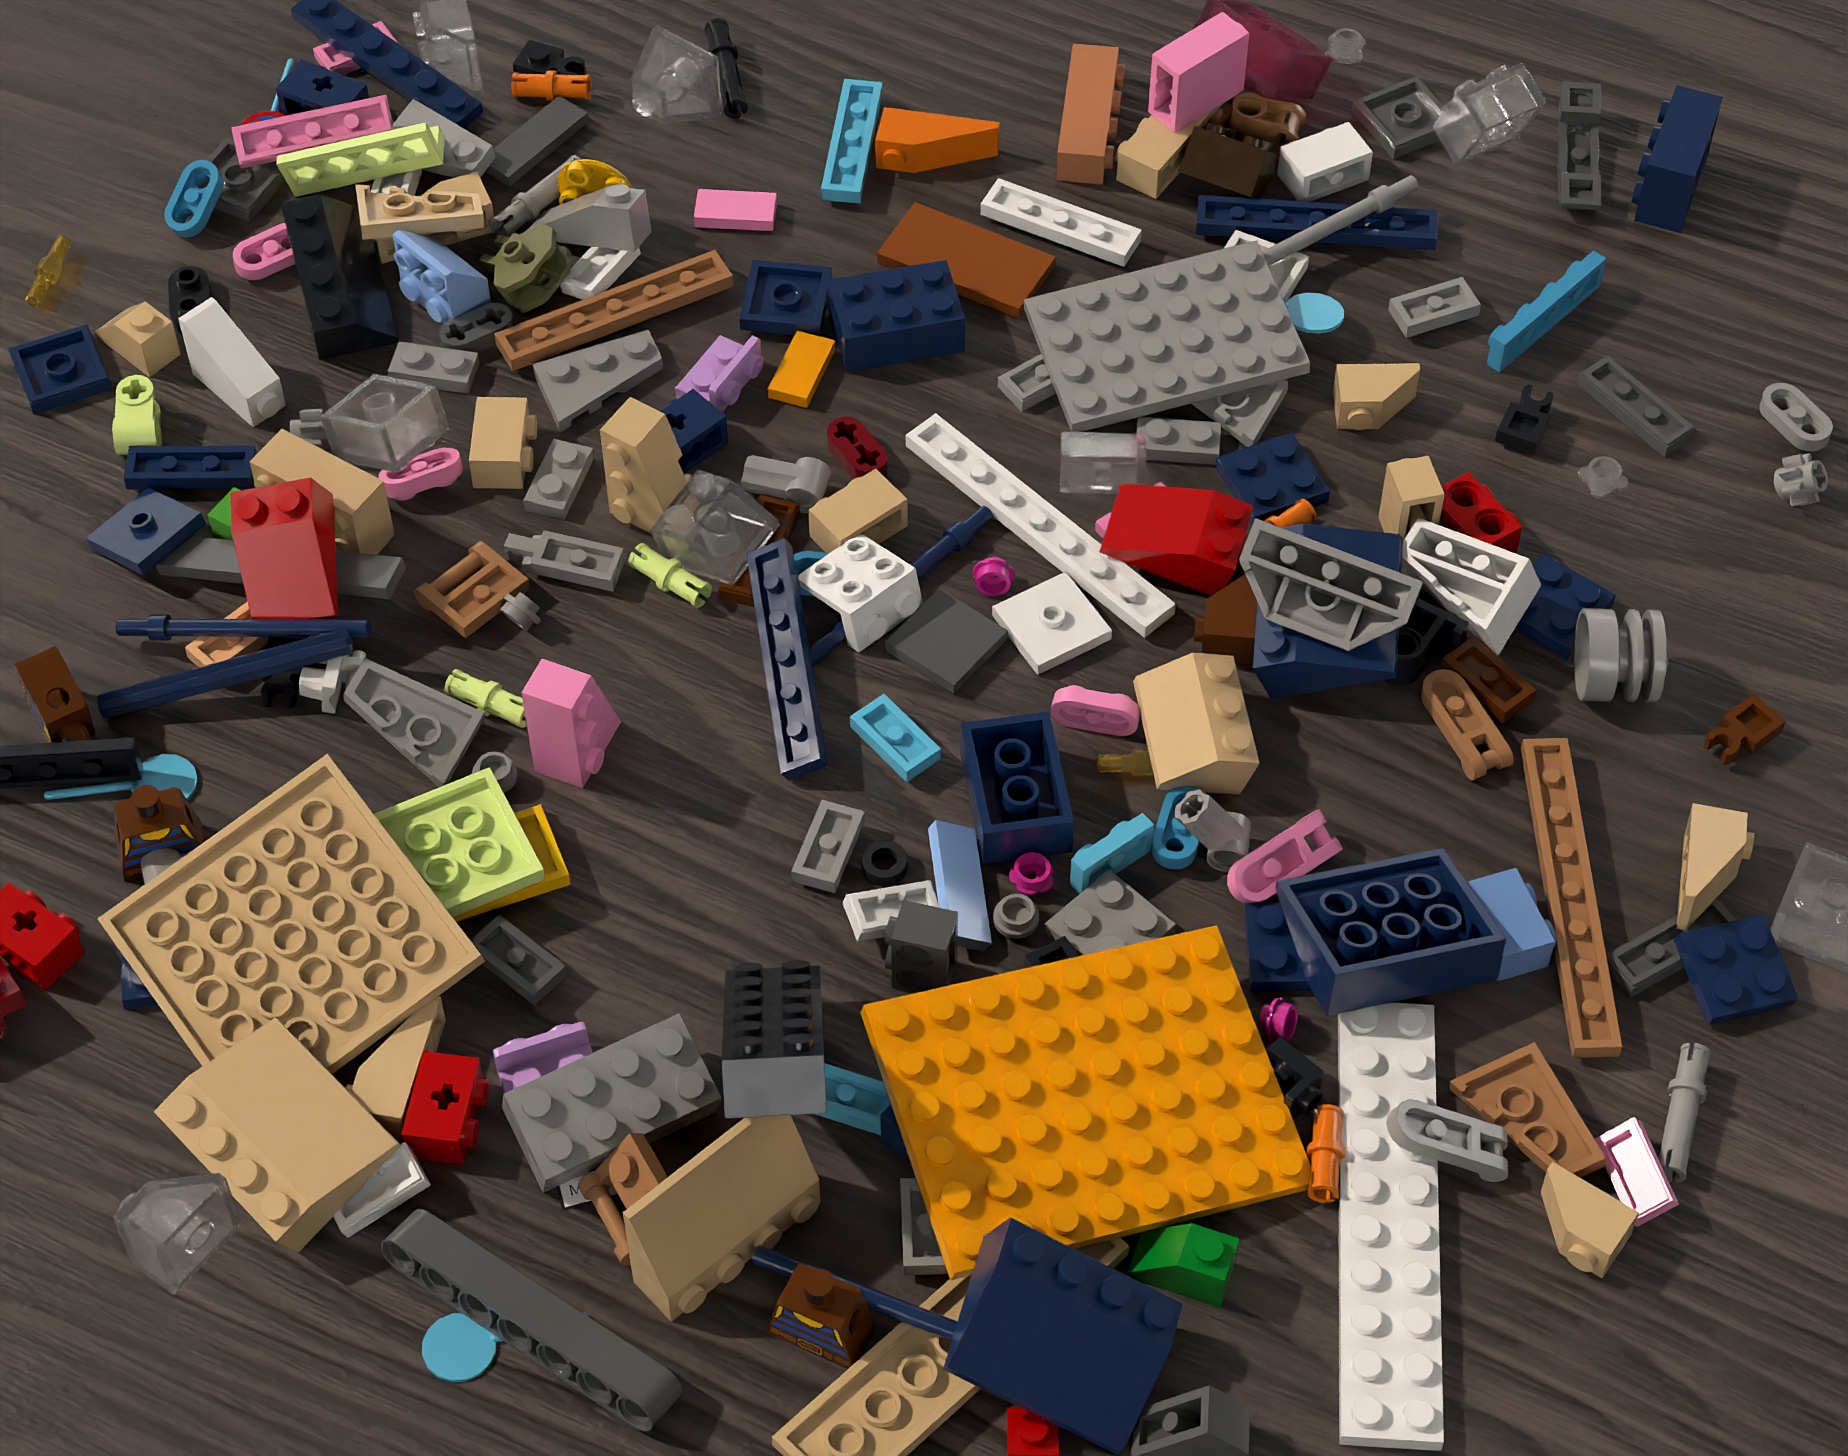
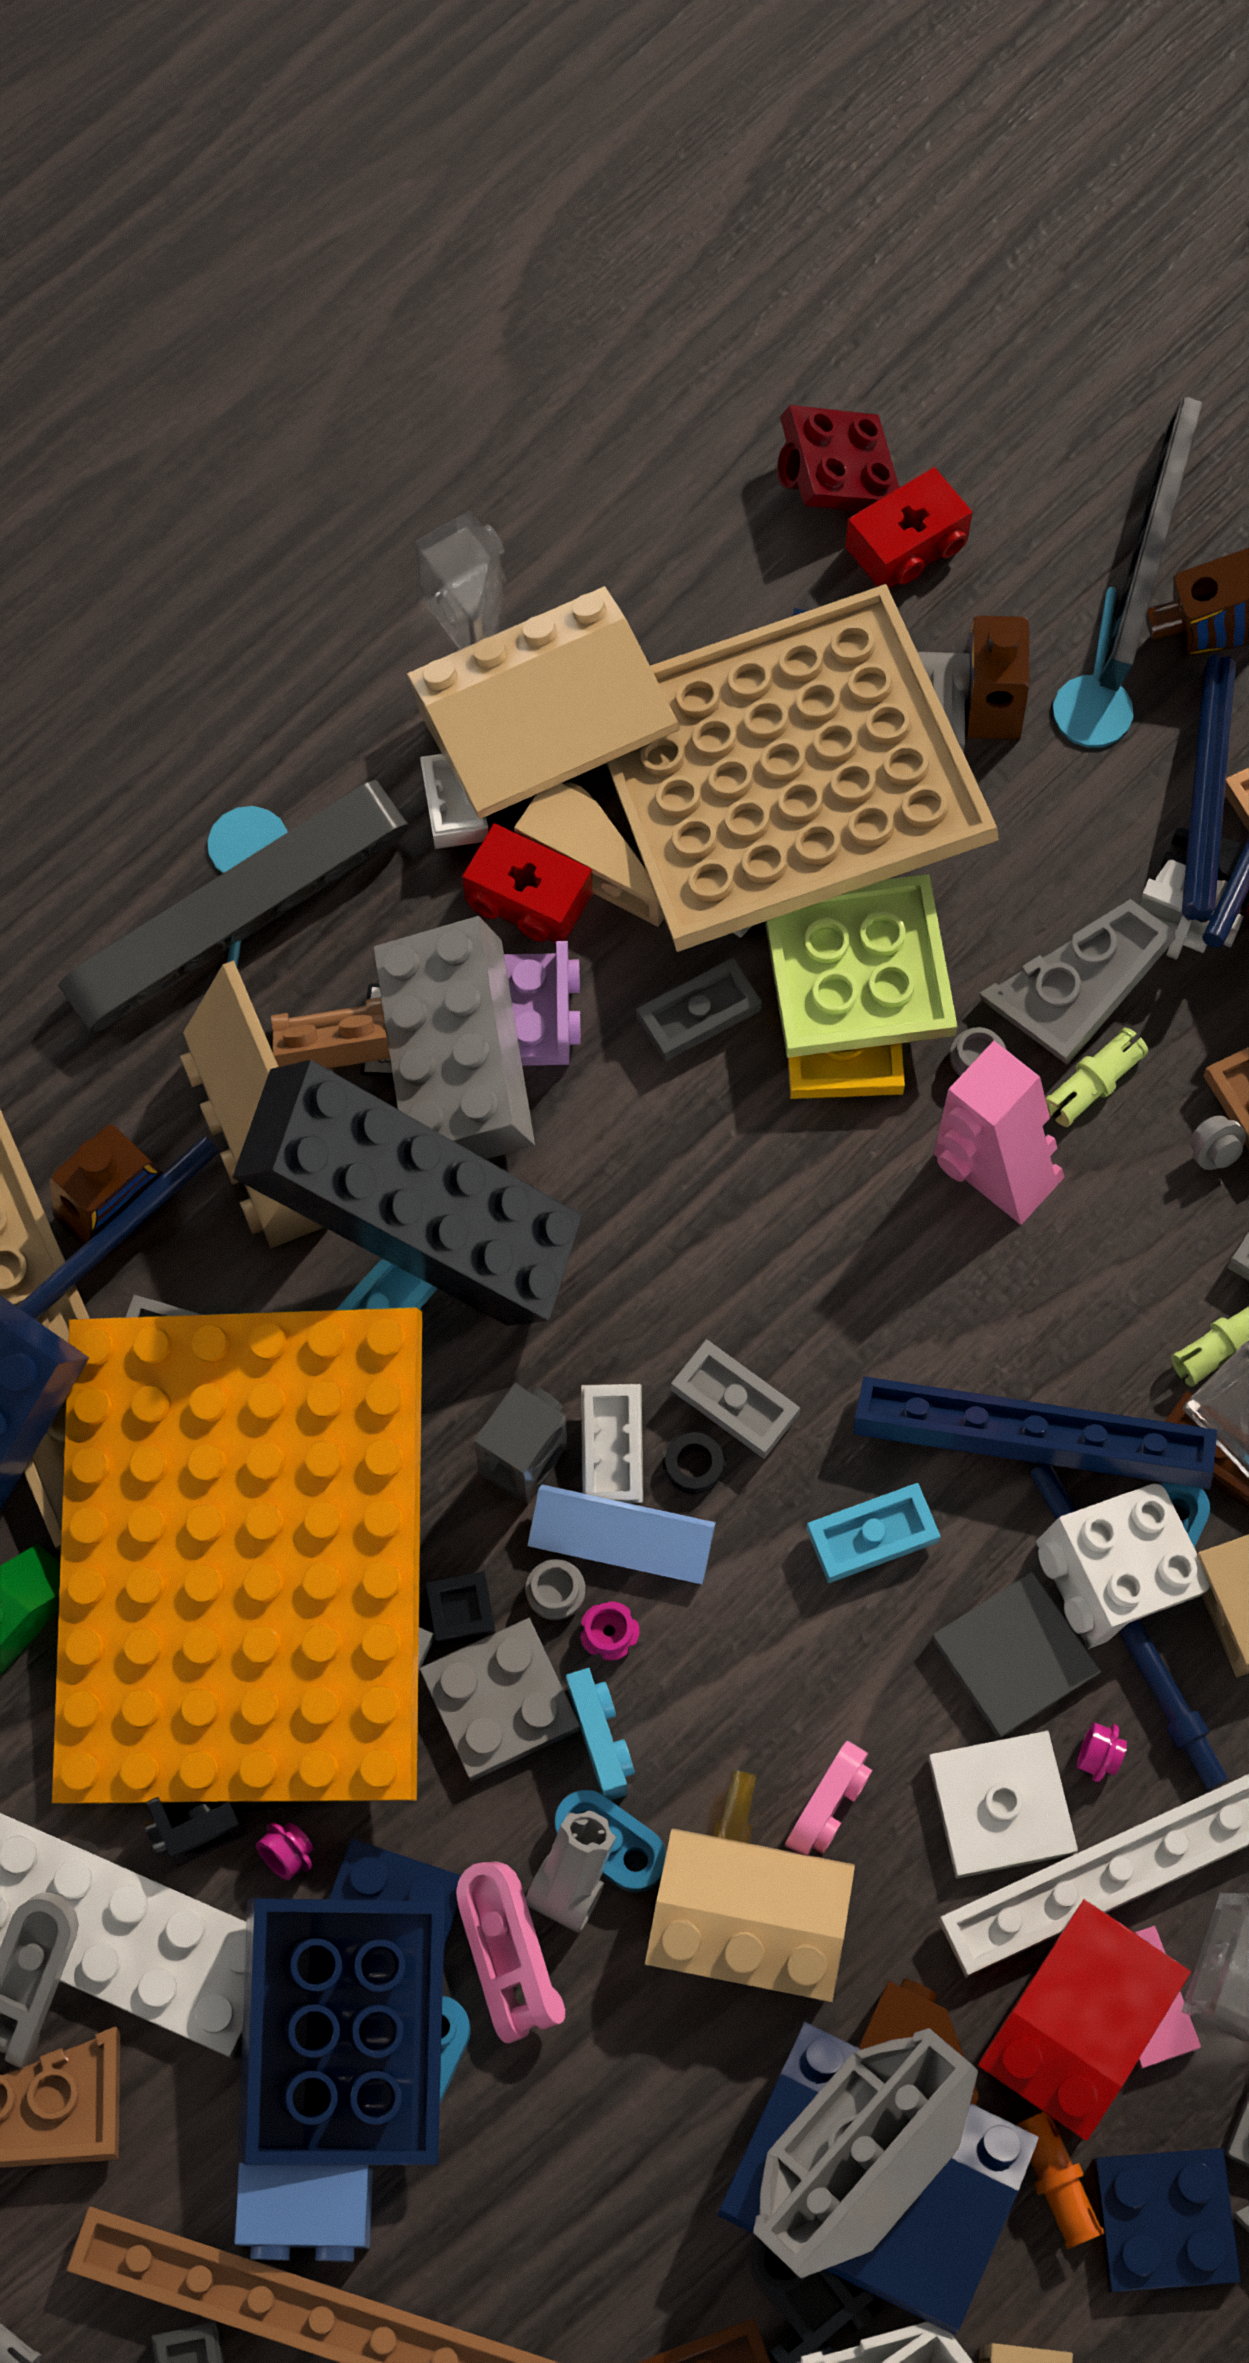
camera: 110 degrees right, 15 degrees up
(1016, 787) = (729, 1644): dark blue brick -> none
(1325, 1153) = (83, 1829): orange pin -> none
(1464, 723) = (645, 2303): medium nougat plate -> none

